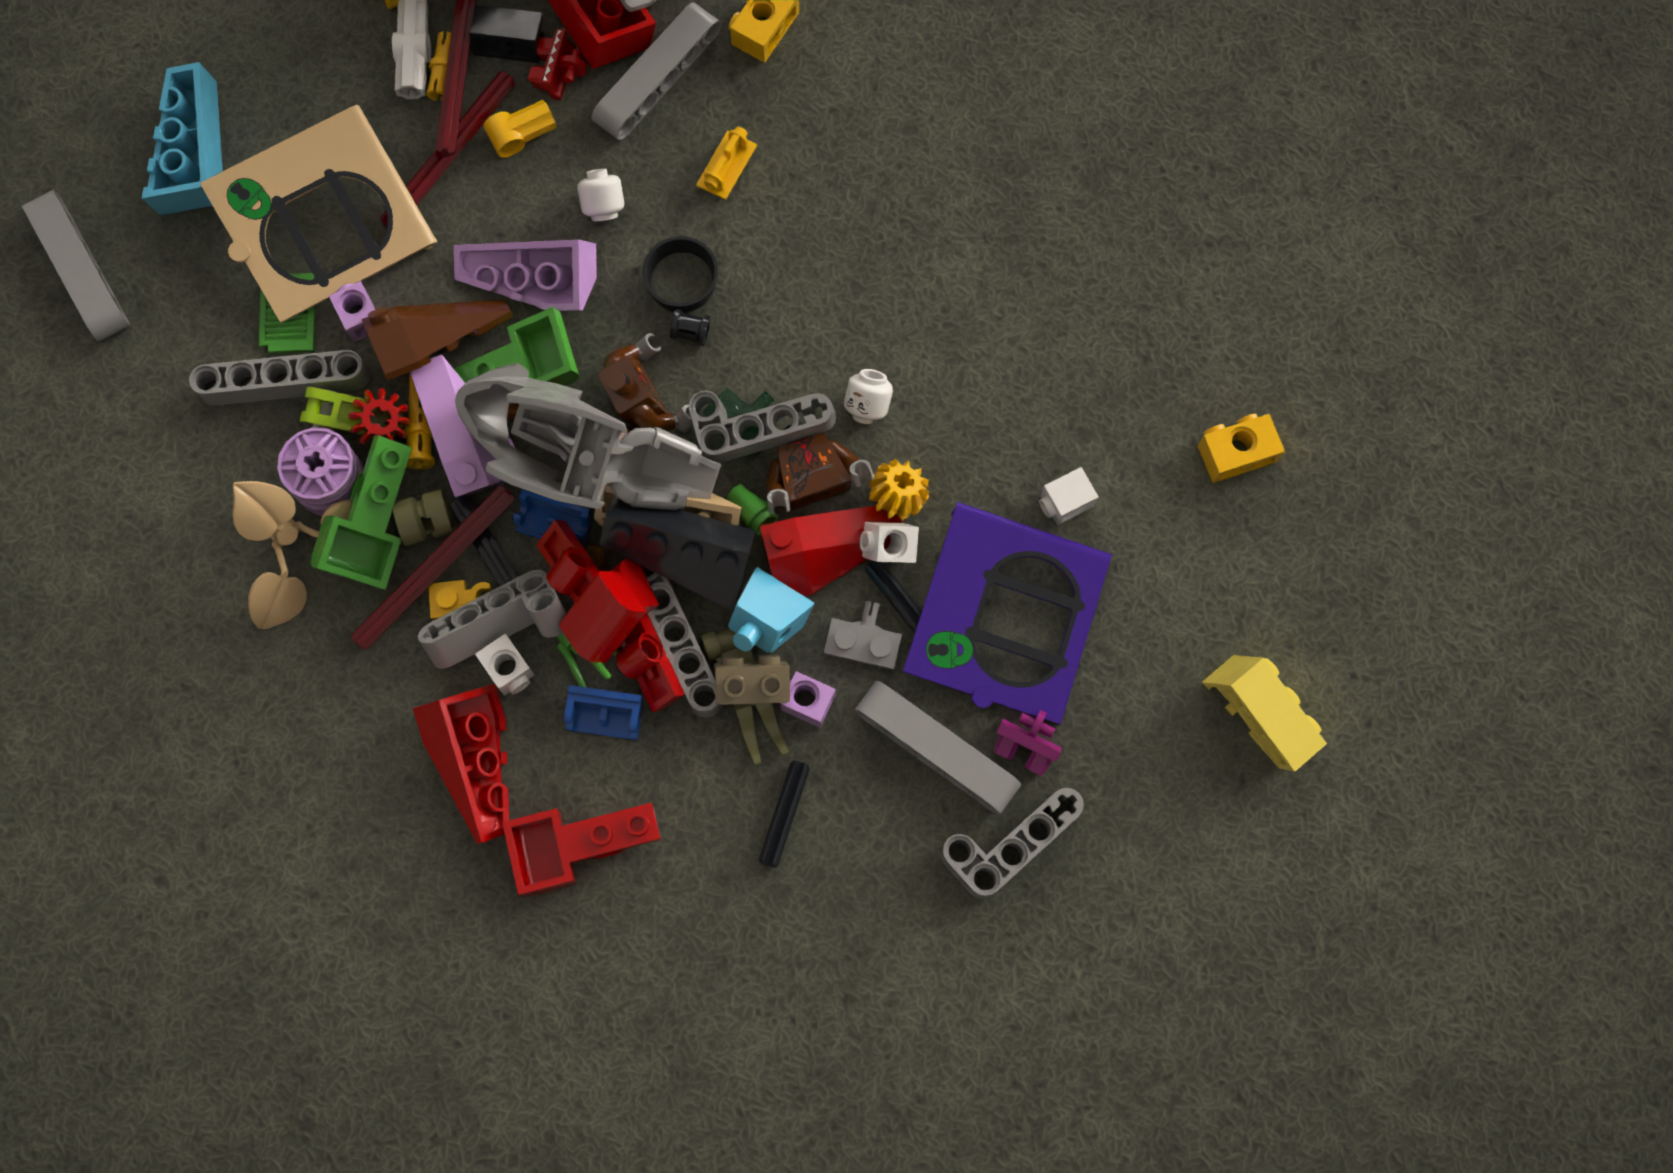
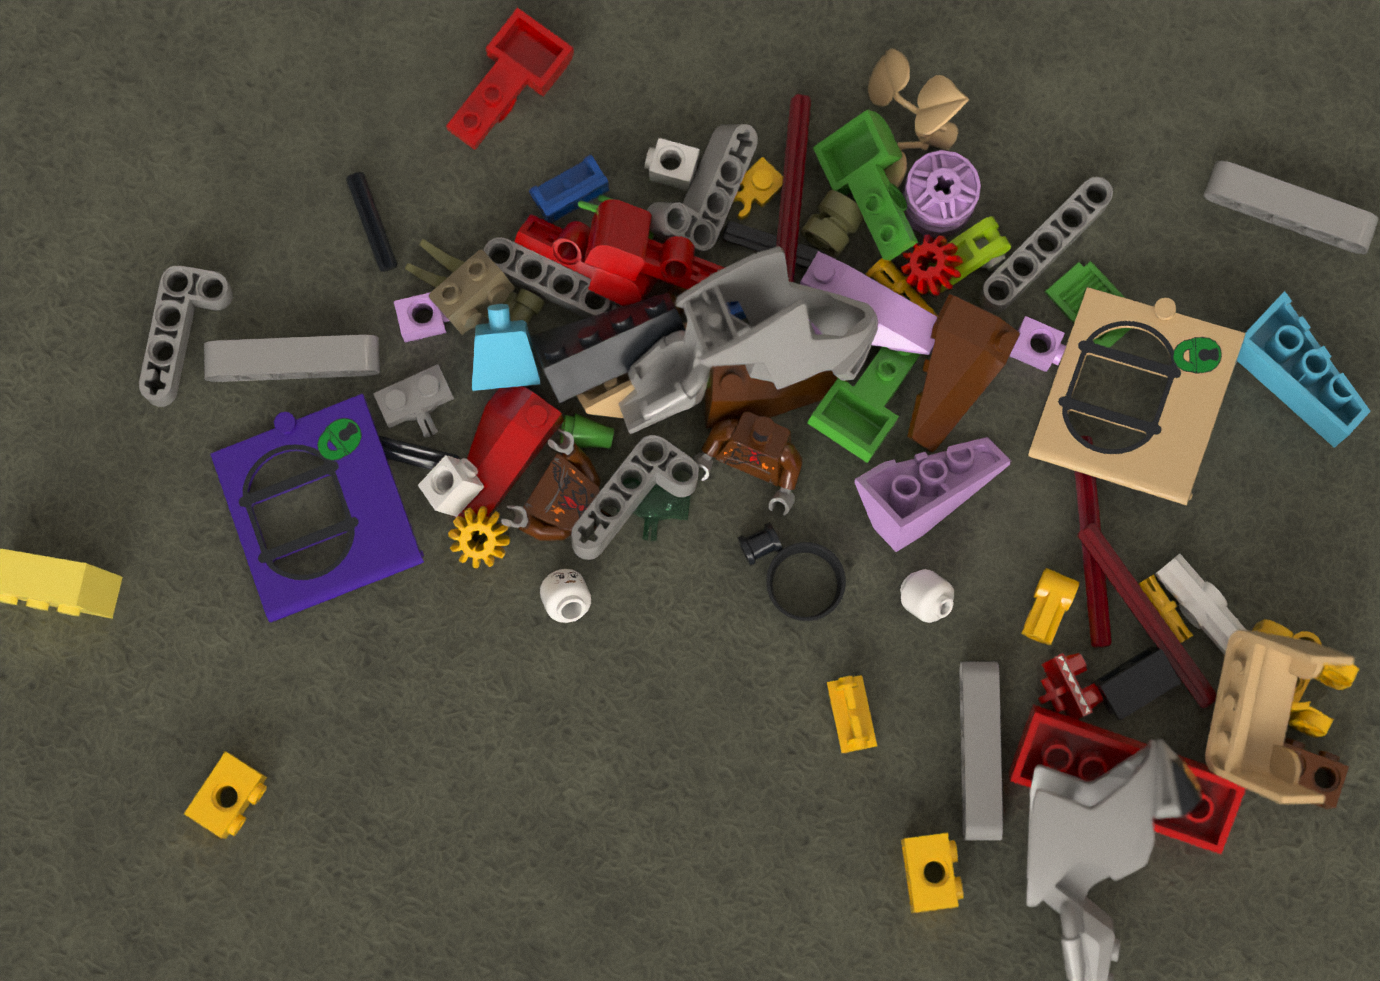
camera: 140 degrees right, 5 degrees up
(465, 748) = (652, 84): red wedge -> none
(1042, 750) = (223, 419): magenta hips -> none
(1068, 496) = (338, 640): white brick -> none

